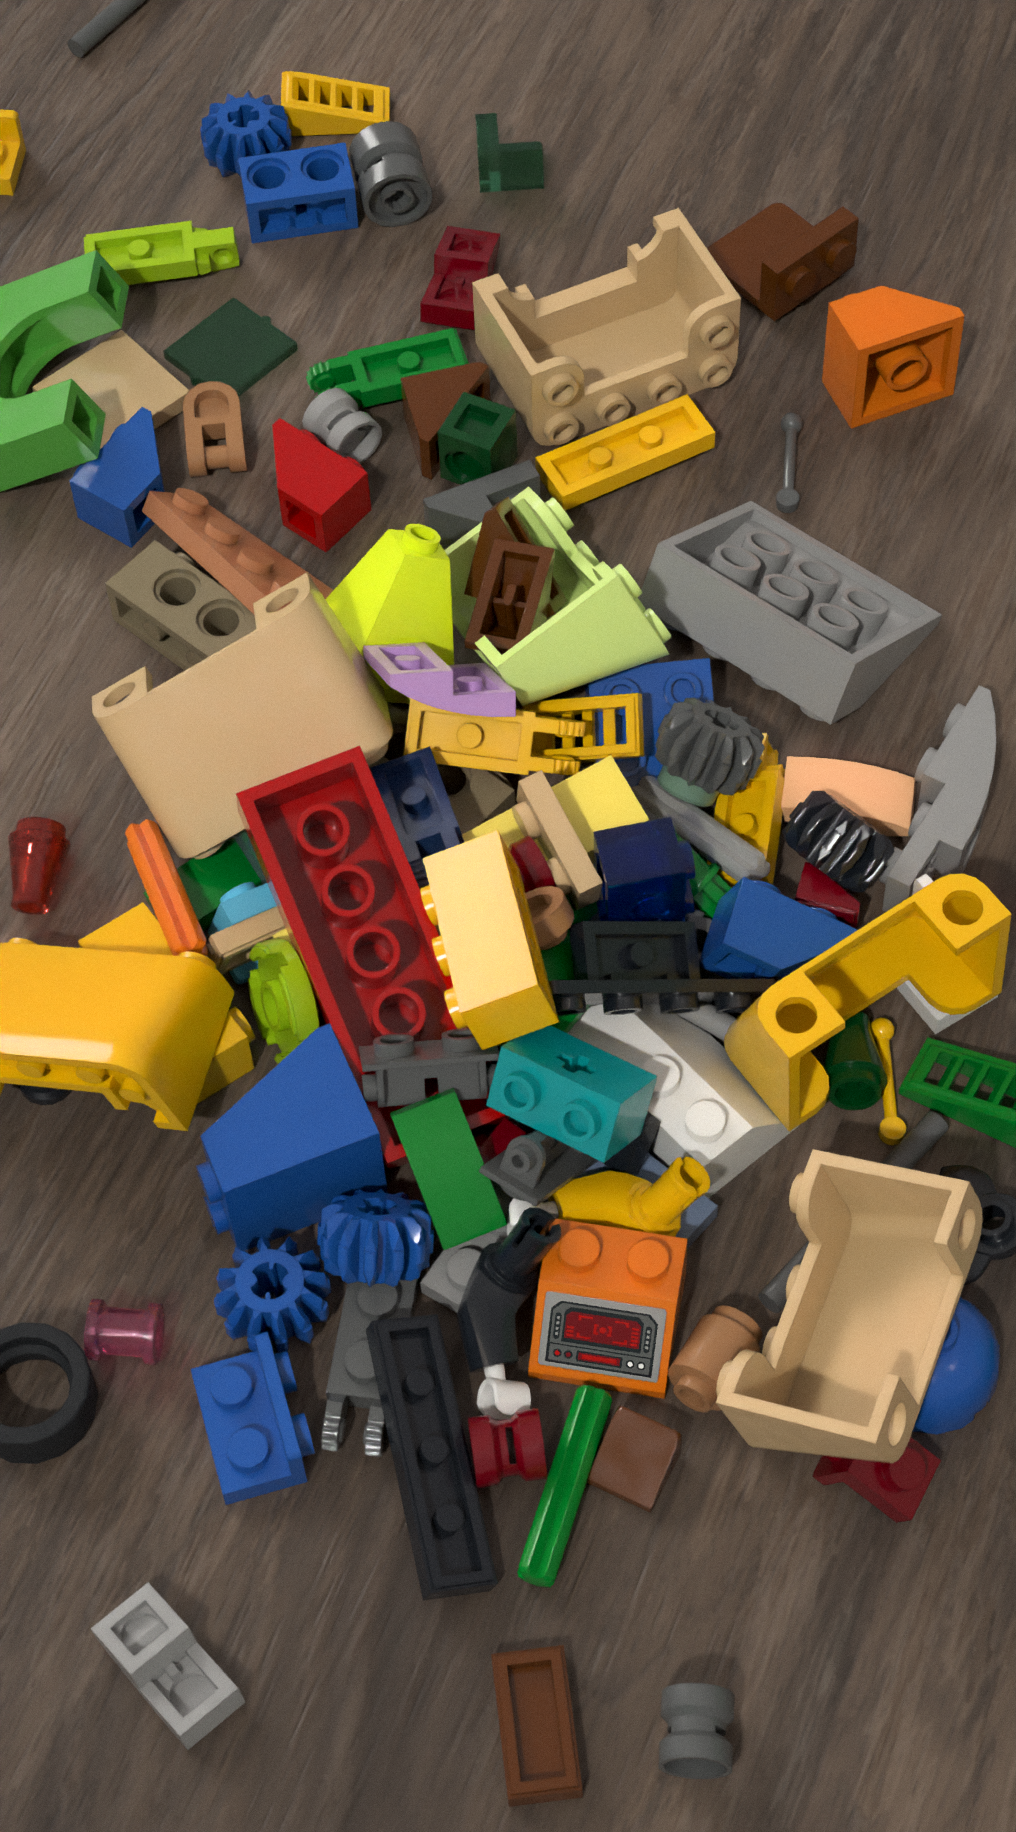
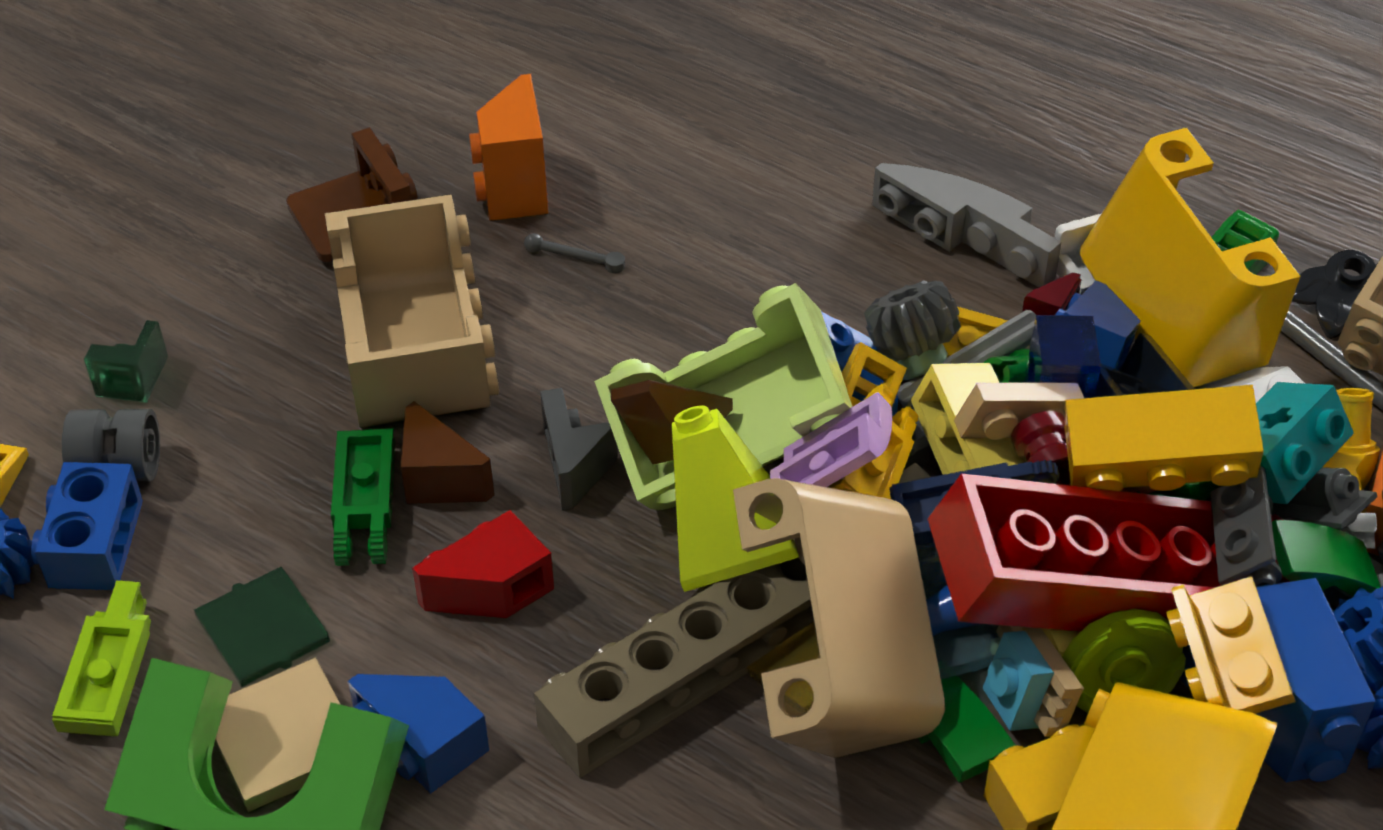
camera: 80 degrees left, 10 degrees down
(165, 889) = (985, 737): orange axle -> none
(213, 413) = (354, 643): medium nougat plate -> none
(223, 547) = (579, 631): nougat wing -> none
(254, 1045) = (1230, 647): none -> yellow bracket
(339, 425) = (420, 535): light grey wheel -> none
(458, 261) = (255, 427): dark red slope -> none
(476, 439) = (501, 427): dark green brick -> none
(512, 594) = (749, 407): reddish brown slope -> none
(625, 452) = (532, 343): yellow plate -> none
(785, 609) = (715, 279): light grey slope -> none
(838, 841) = (1010, 272): black gear -> none
(874, 793) = (949, 263): light nougat slope -> none

